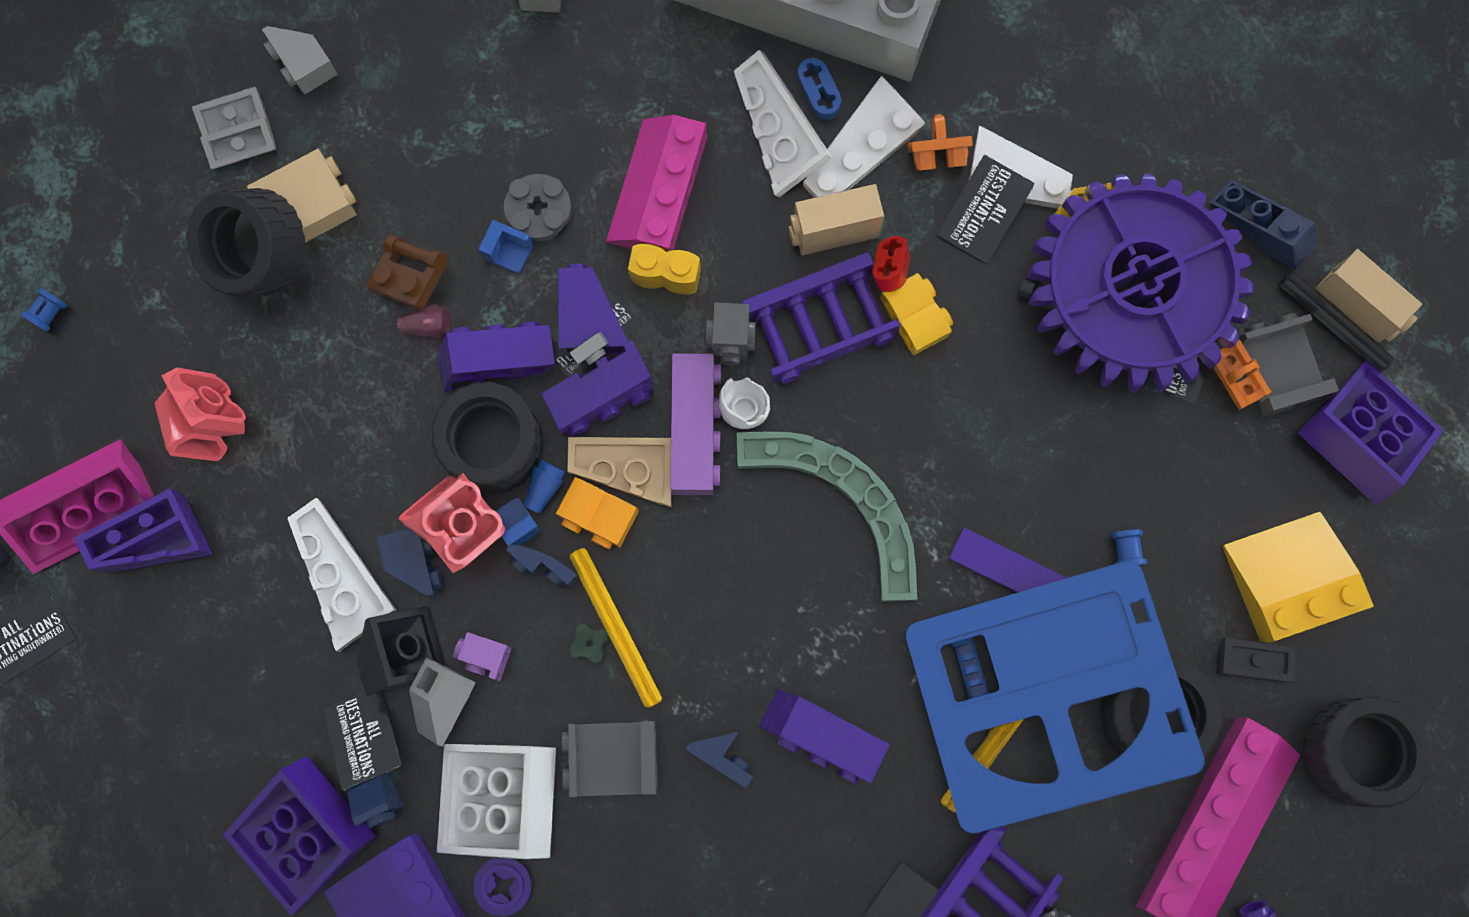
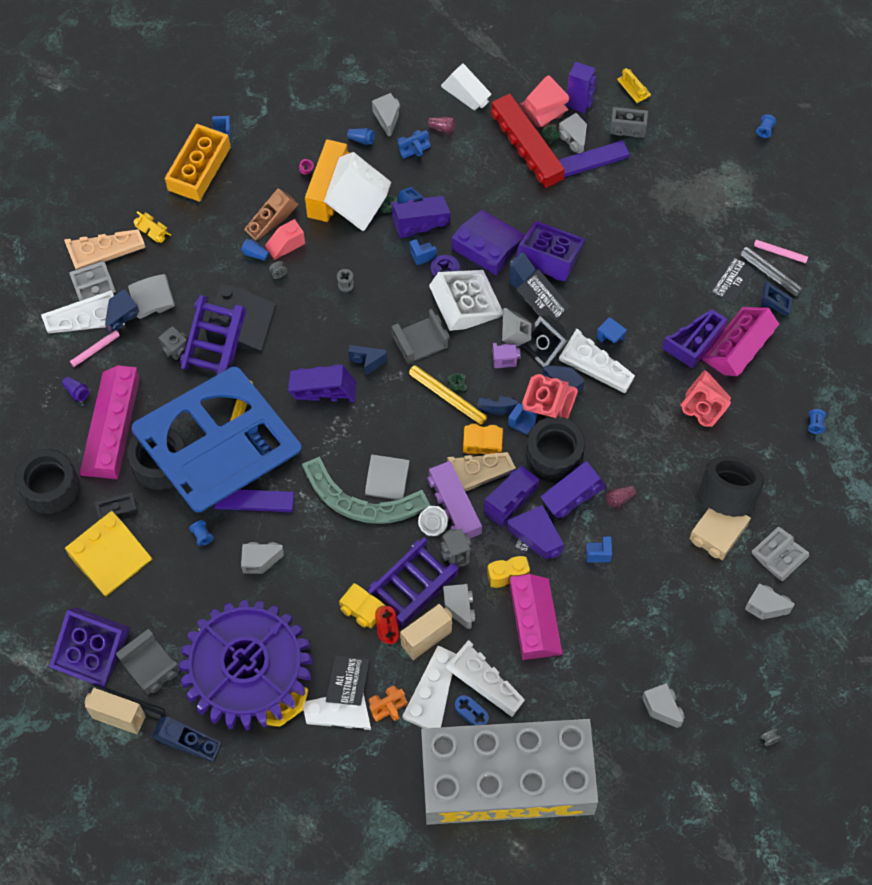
camera: 155 degrees right, 15 degrees down
(281, 616) = (611, 330): none -> blue panel
(402, 282) = (643, 508): reddish brown plate -> none
(541, 188) = (591, 590): dark grey plate -> none
(543, 485) = (516, 443): blue cone -> none
(591, 349) = (524, 505): light grey plate -> none
(766, 253) = (457, 601): none -> light grey slope
(784, 516) = (387, 477): none -> light grey slope
(1050, 463) = (260, 557): none -> light grey slope
(1247, 390) = (166, 639): orange hips -> none

